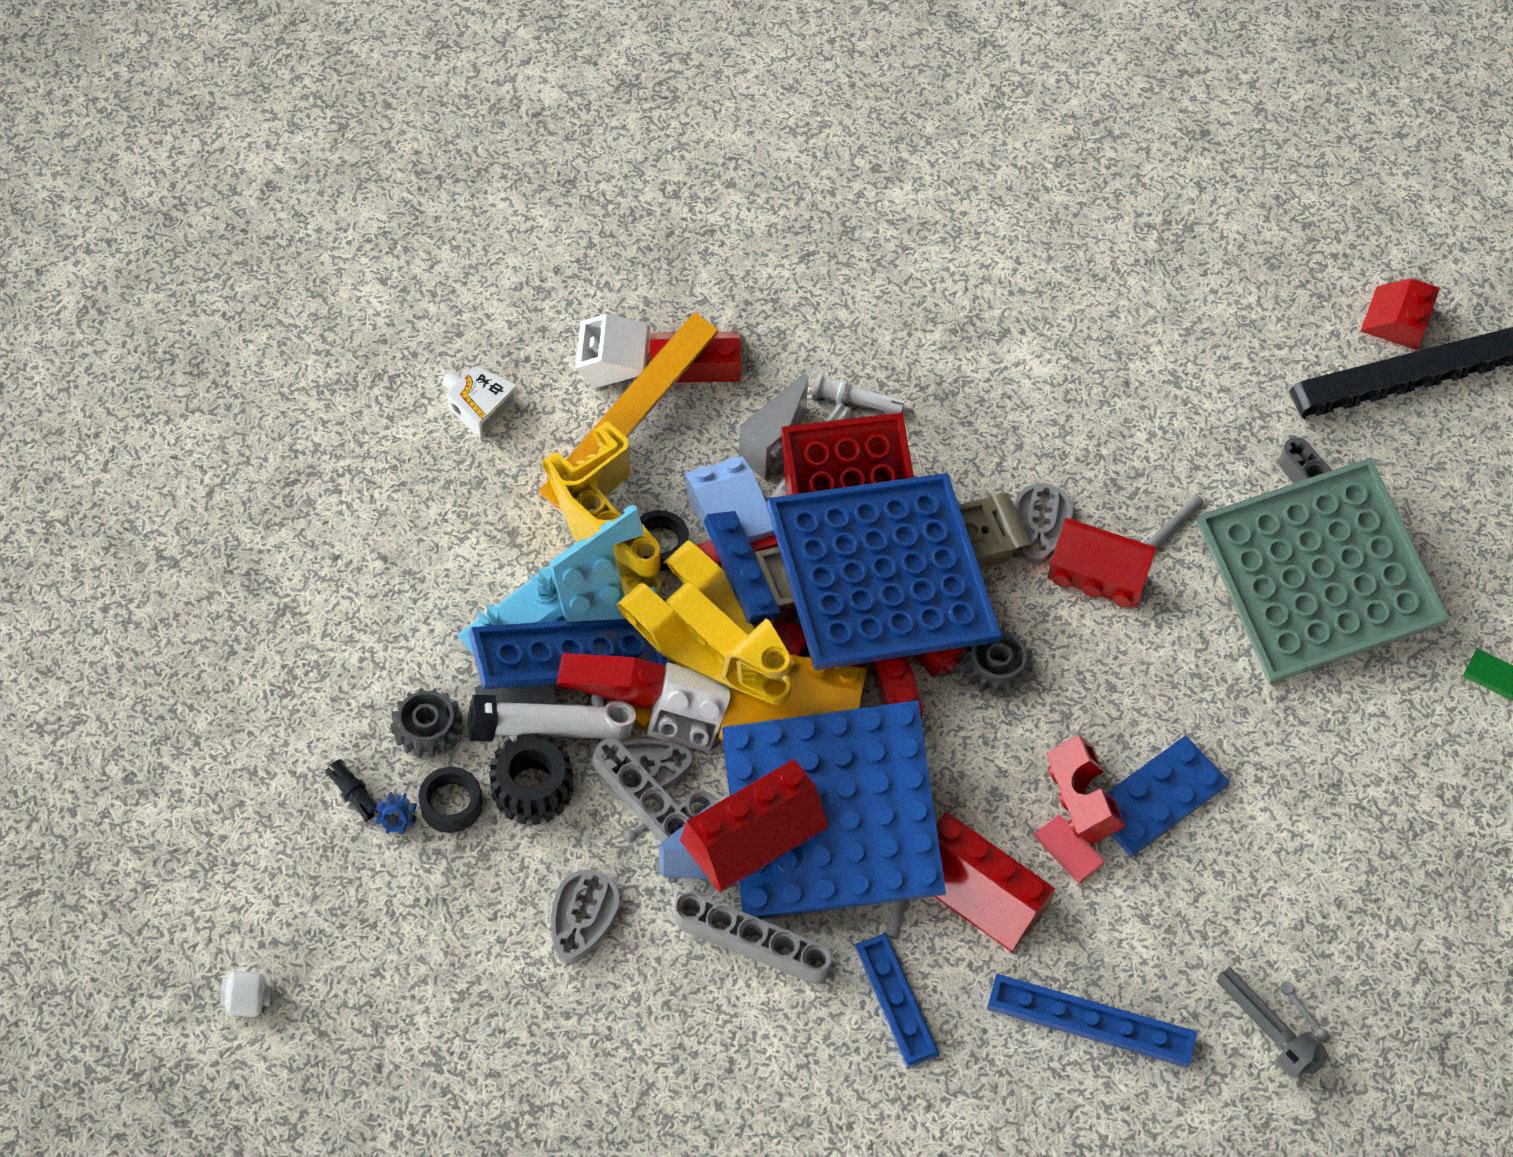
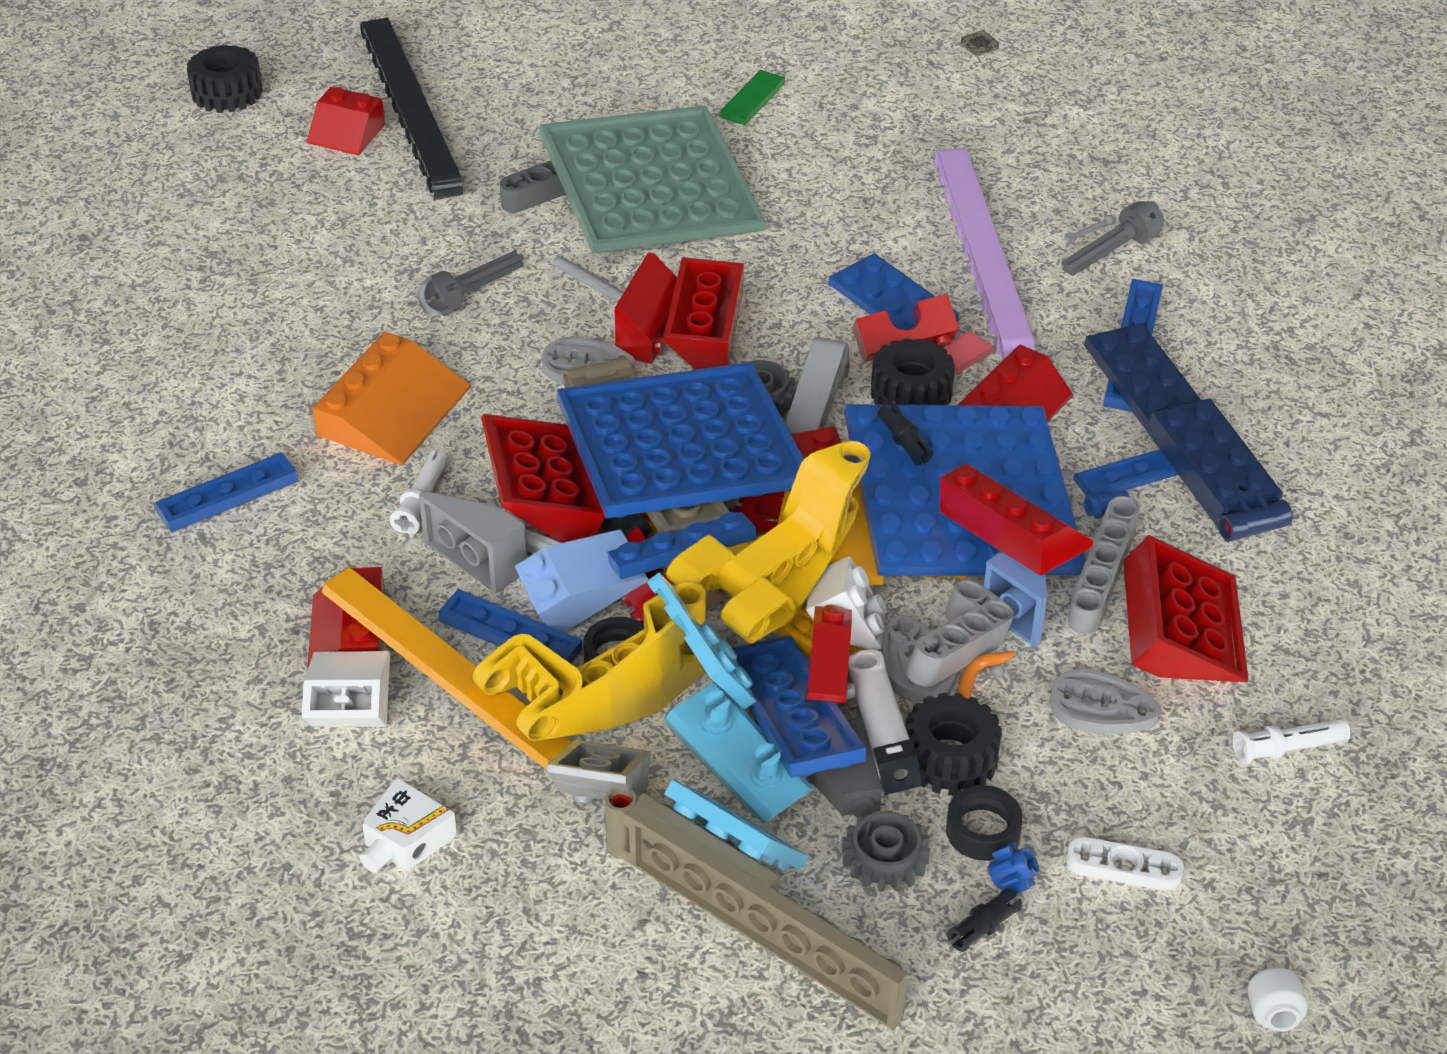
camera: 90 degrees left, 15 degrees down
(371, 614) = (749, 901): none -> dark tan hinge
(402, 930) = (1135, 854): none -> white beam
(436, 603) = (734, 827): none -> medium azure plate
(498, 510) = (593, 769): none -> light grey slope
(524, 1053) = (1274, 741): none -> white pin
(604, 805) = (985, 660): none -> orange animal
(681, 1001) = (1182, 615): none -> red slope
(693, 453) = (499, 624): none -> blue plate
(842, 957) = (1097, 503): none -> blue pin
(856, 263) = (226, 492): none -> blue plate
(872, 744) = (905, 433): none -> black pin
(943, 1043) = (1191, 434): none -> dark blue hinge
(974, 368) = (389, 400): none -> orange slope
(987, 702) = (821, 377): none -> light grey beam
(1009, 815) = (912, 374): none -> black tyre
(1103, 613) = (705, 311): none -> red slope
(1125, 400) = (450, 289): none -> dark grey piece
(1240, 885) = (984, 251): none -> lavender beam
(1453, 222) = (224, 78): none -> black tyre

